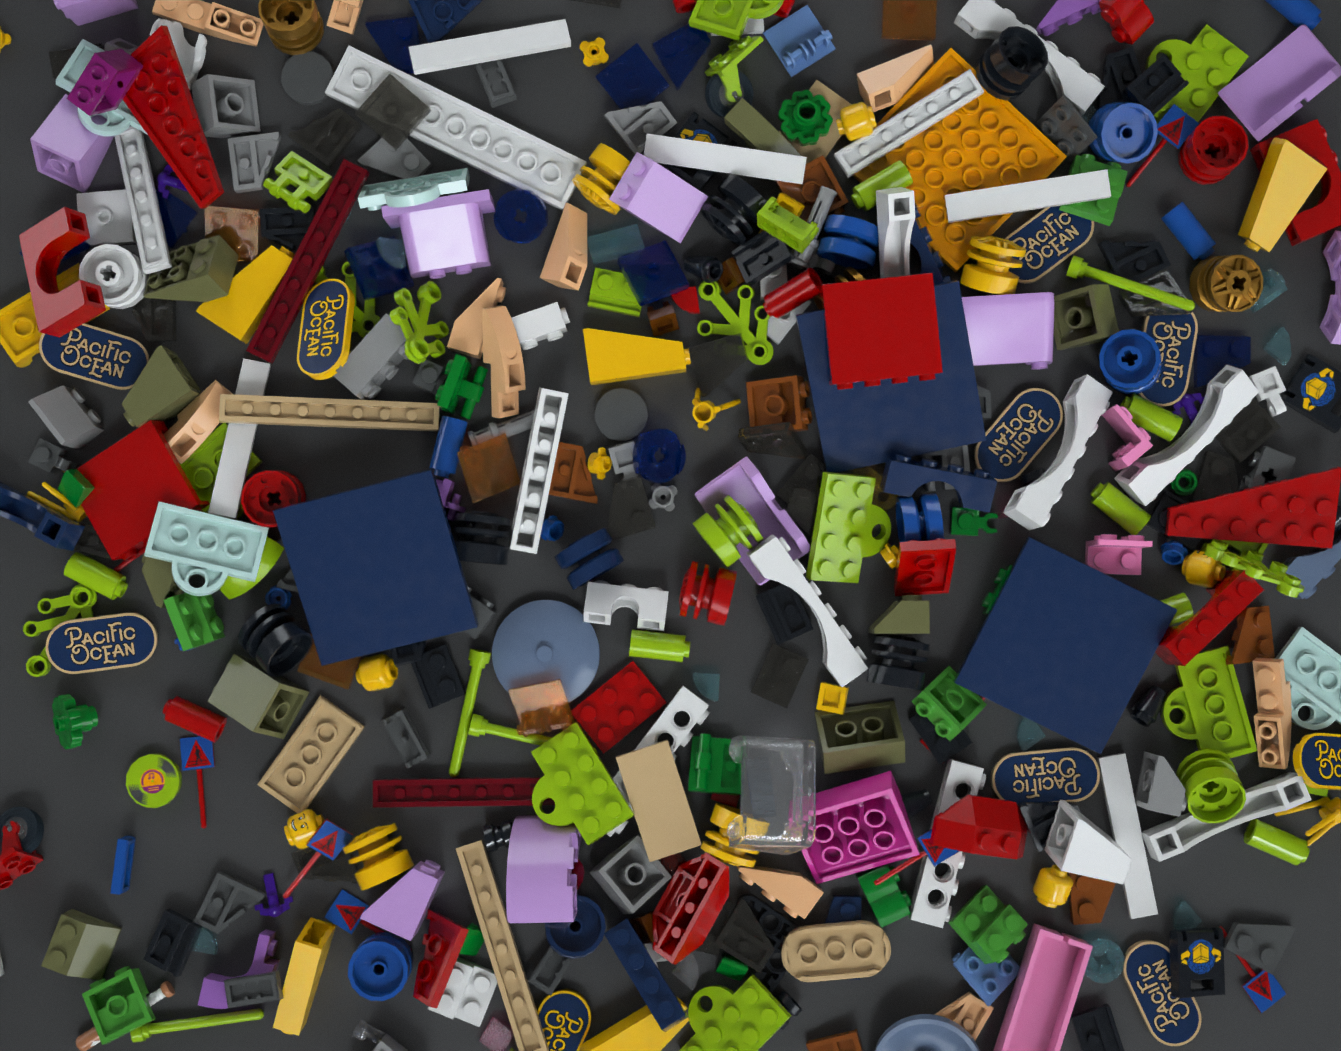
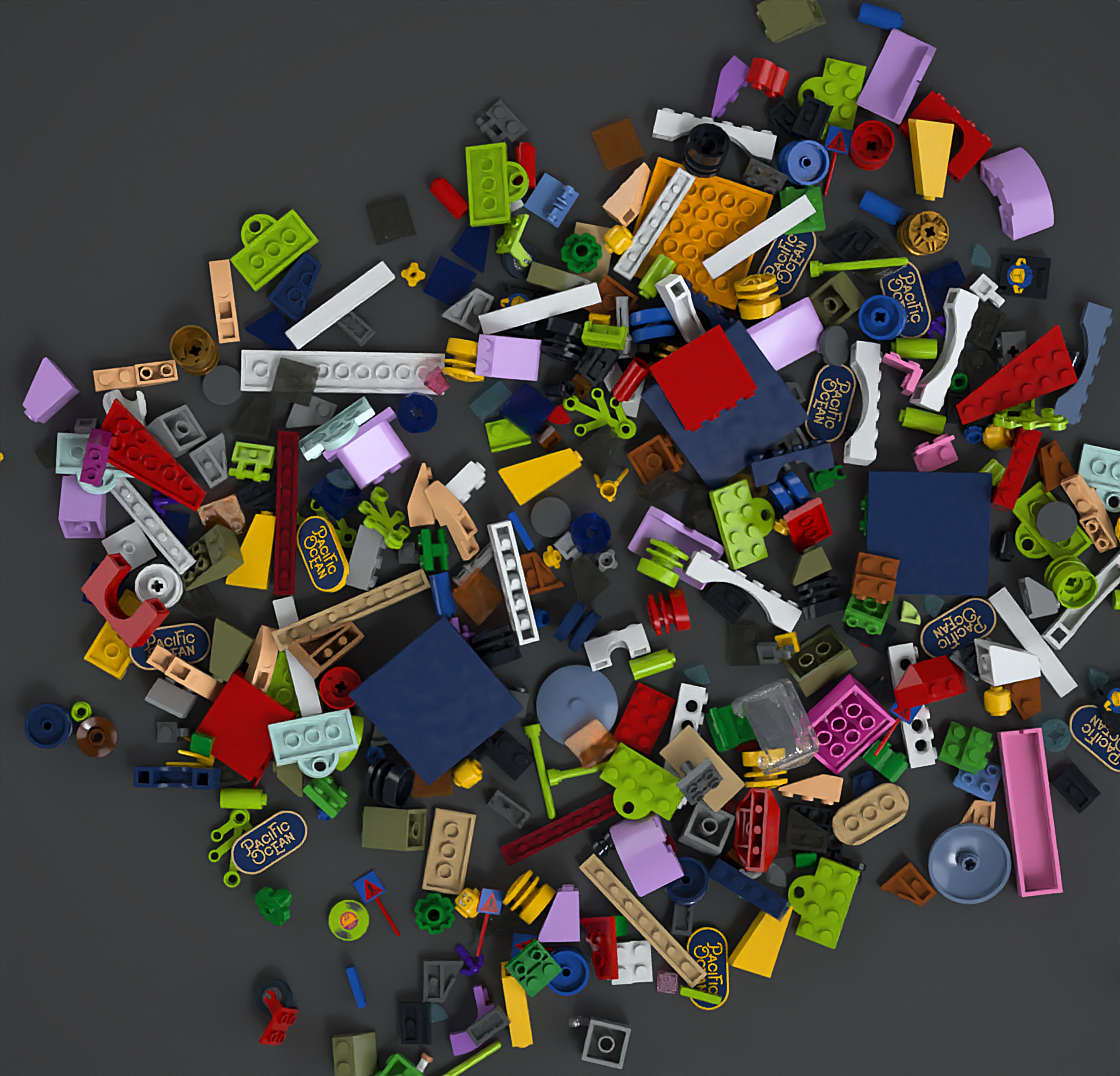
camera: 25 degrees left, 0 degrees up
(94, 392) = (185, 673): none -> light nougat slope
(194, 718) = (357, 863): red brick -> none
(270, 816) = (425, 919): none -> green plant
(275, 444) = (324, 649): none -> medium nougat wedge
(338, 947) = (533, 968): none -> green plate
(561, 188) = (436, 381): none -> clear pink slope
(568, 251) = (462, 423): light nougat slope -> none
(577, 414) = (521, 530): none -> blue tile
(646, 814) = (698, 780): none -> dark grey plate
(807, 701) = (772, 654): none -> dark grey plate
(975, 669) = (874, 577): none -> dark orange plate
(995, 731) = (909, 614): none -> yellowish green tile
(1056, 368) = (834, 345): none -> dark grey tile
(1225, 704) = (1056, 521): none -> dark grey tile
(1273, 288) = (954, 227): clear light blue bracket -> none

